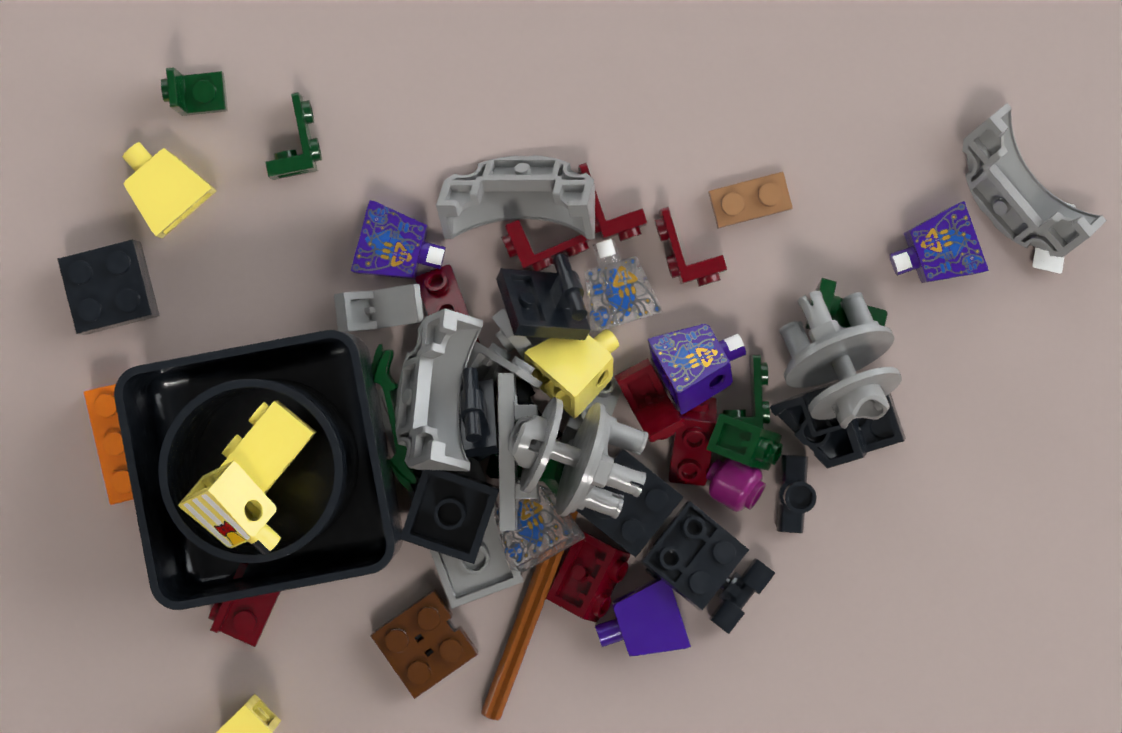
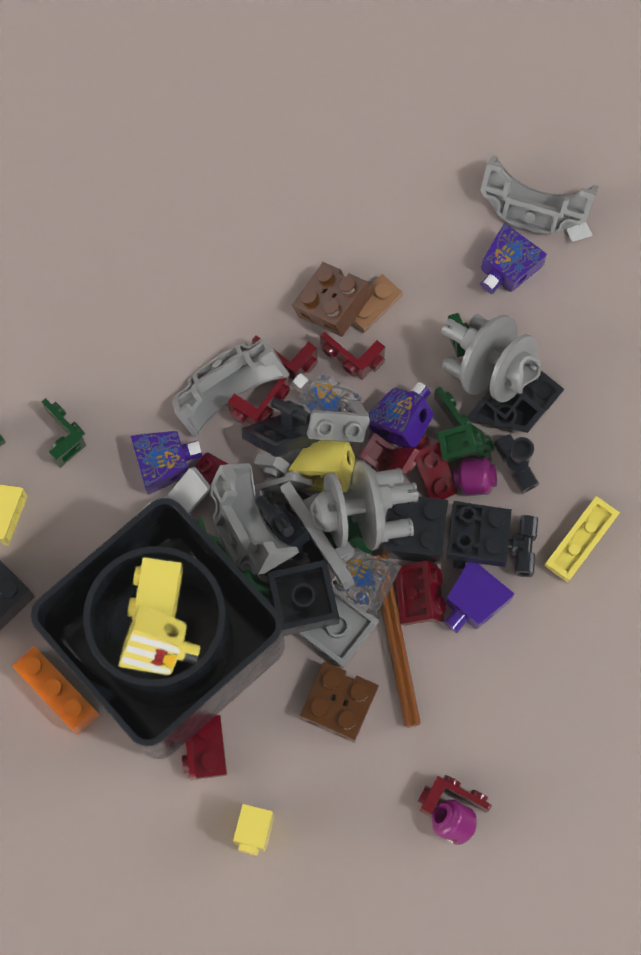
camera: 30 degrees left, 15 degrees down
(610, 341) = (339, 425): none -> light grey bracket
(703, 170) = (332, 299): none -> reddish brown piece
(809, 626) = (582, 539): none -> light yellow plate

